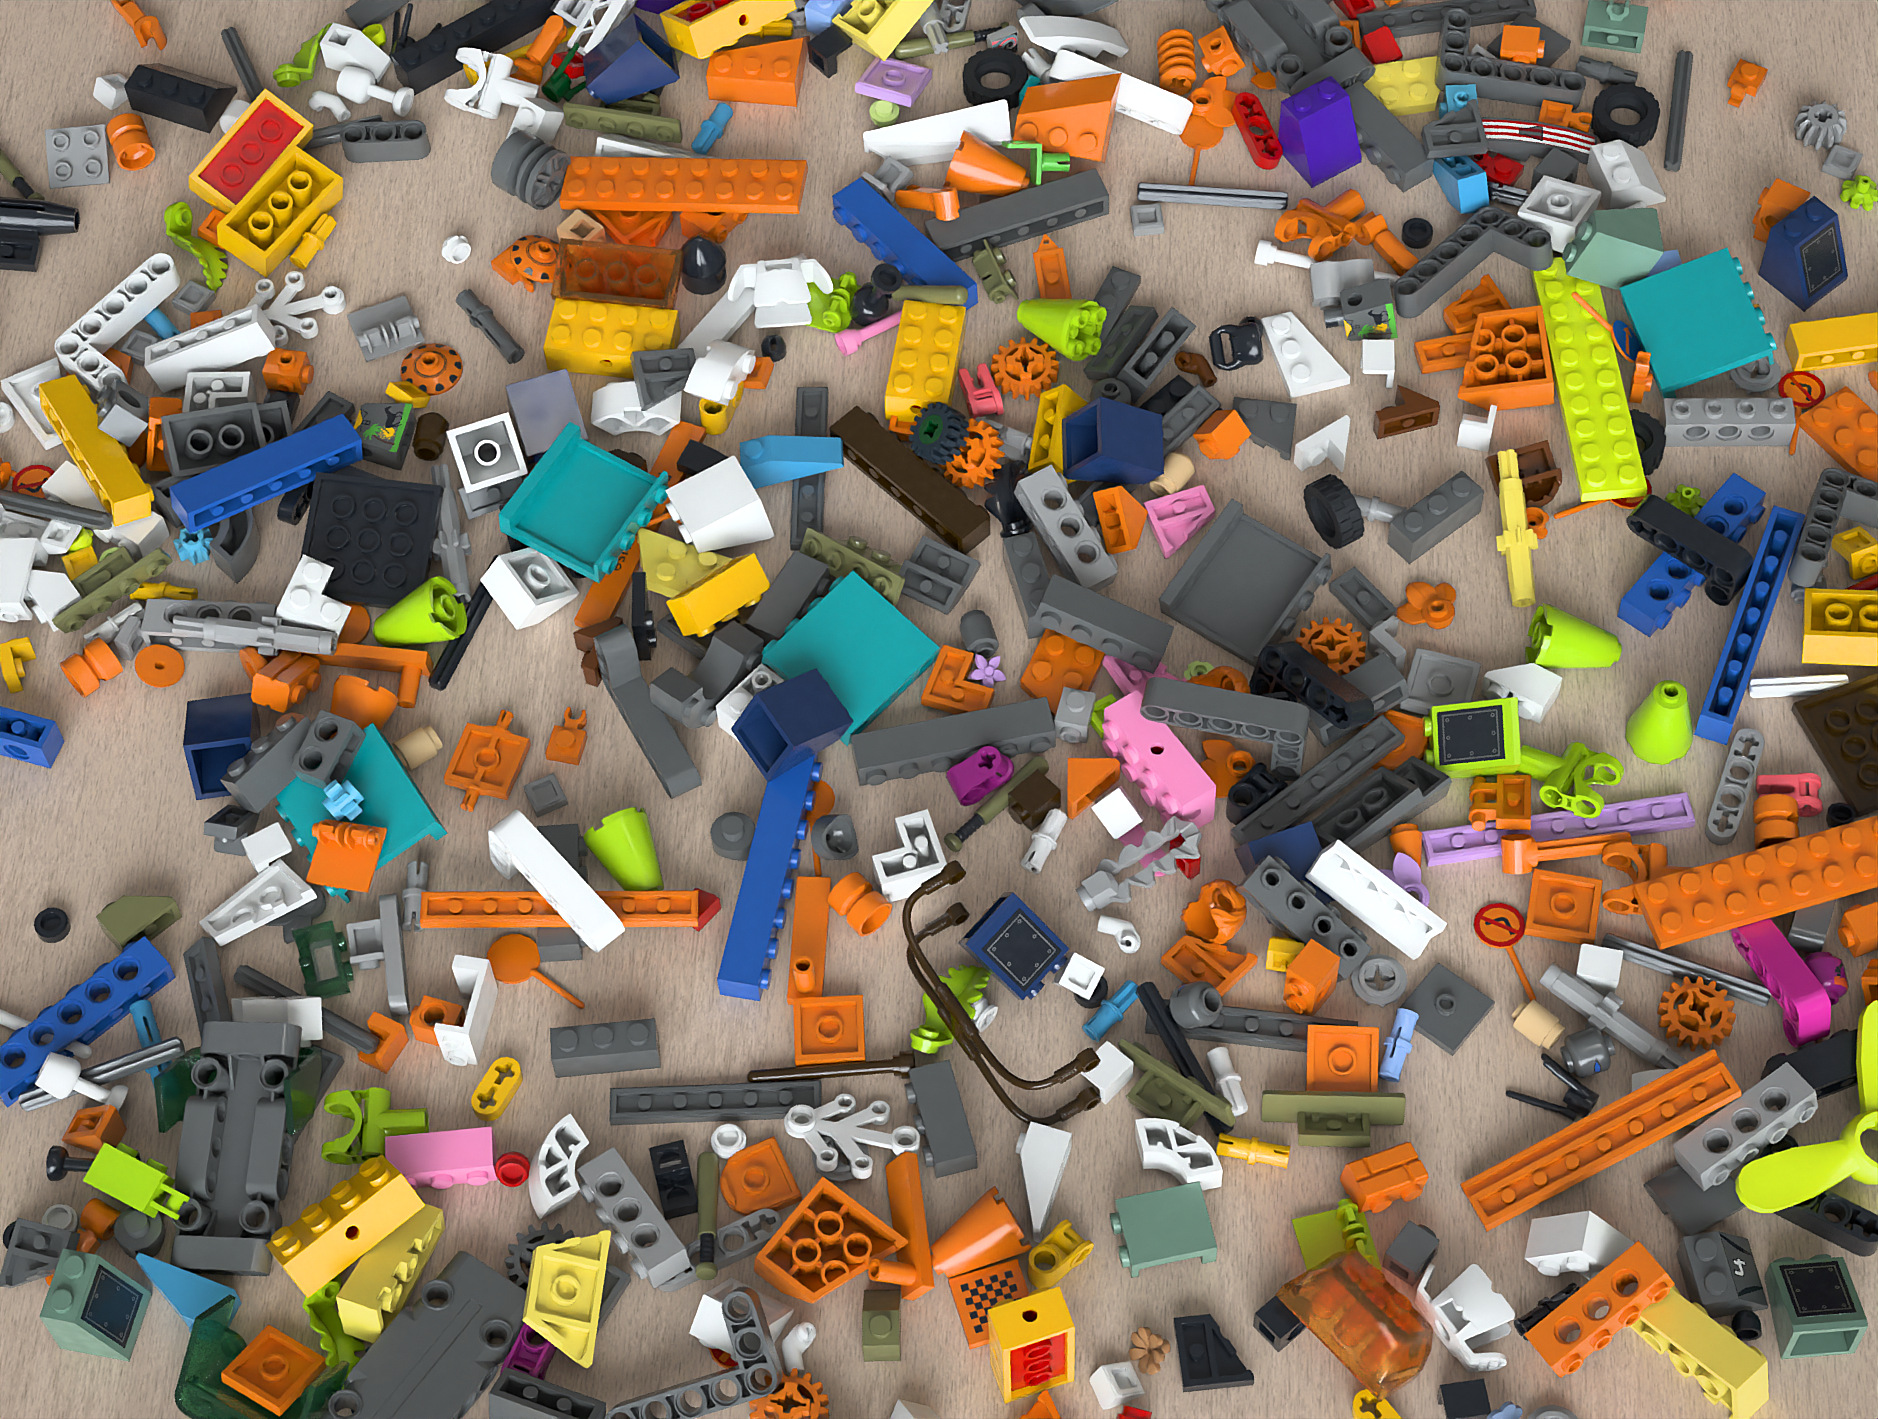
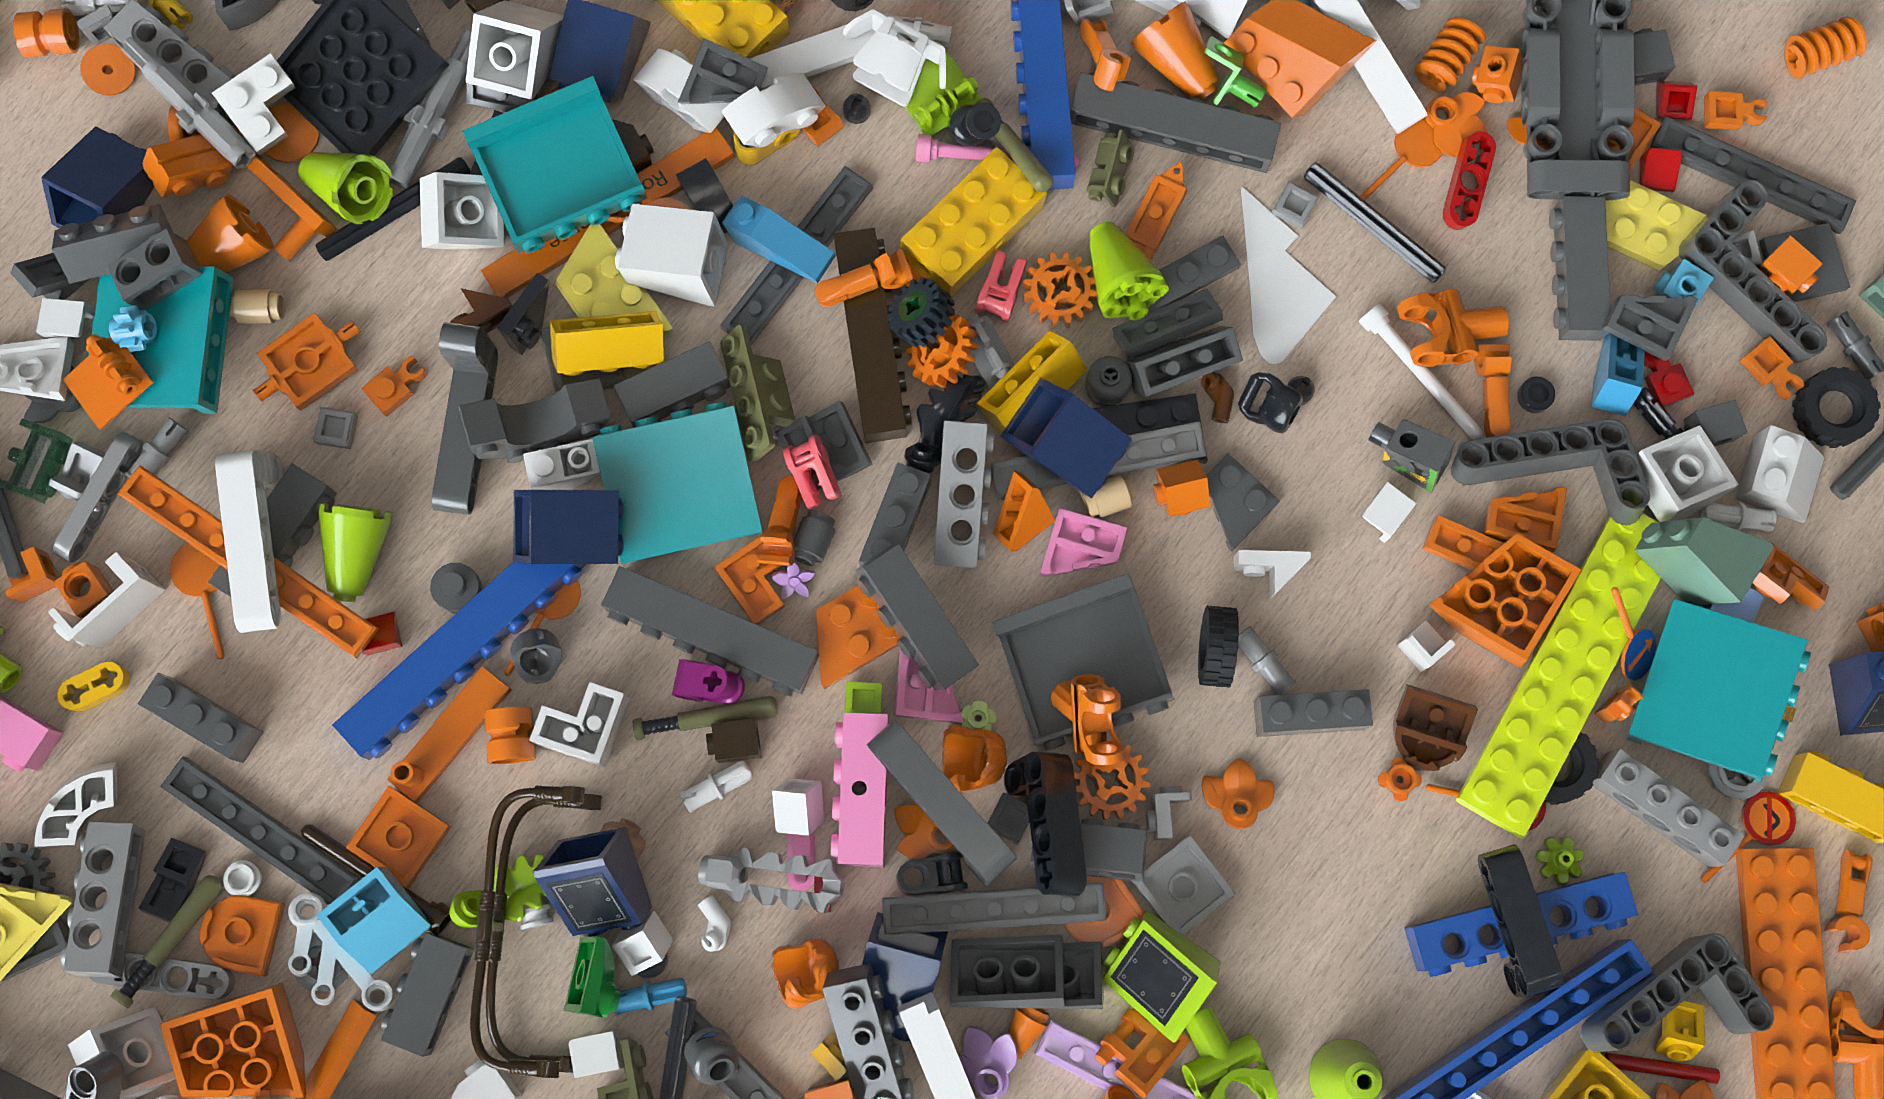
camera: 30 degrees right, 20 degrees up
(512, 1168) = (49, 773): red plate -> none
(862, 1081) = (374, 919): none -> medium azure slope
(891, 421) = (889, 270): none -> orange piece
(934, 578) = (802, 461): none -> coral piece
(955, 641) = (778, 541): none -> orange piece
(1061, 1019) = (592, 979): none -> green slope
(1074, 715) = (833, 681): light grey bracket -> none
(1088, 781) = (793, 755): orange slope -> none
(1187, 281) = (1282, 292): none -> white sticker
(1196, 961) = (761, 1014): orange wing -> none
(1280, 599) = (1090, 708): none -> orange connector
(1300, 357) = (1323, 451): white wing -> none
(1319, 132) = (1521, 229): dark purple slope -> none
(1332, 277) = (1418, 402): light grey brick -> none
(1362, 598) = (1181, 748): dark grey plate -> none
(1411, 413) = (1378, 588): reddish brown slope -> none
(1516, 538) = (1367, 791): light yellow piece -> none
(1526, 138) = (1729, 376): slope -> none
(1530, 683) = (1256, 949): white slope -> none
(1569, 642) = (1329, 932): lime cone -> none
(1677, 235) = (1786, 577): none -> orange plate

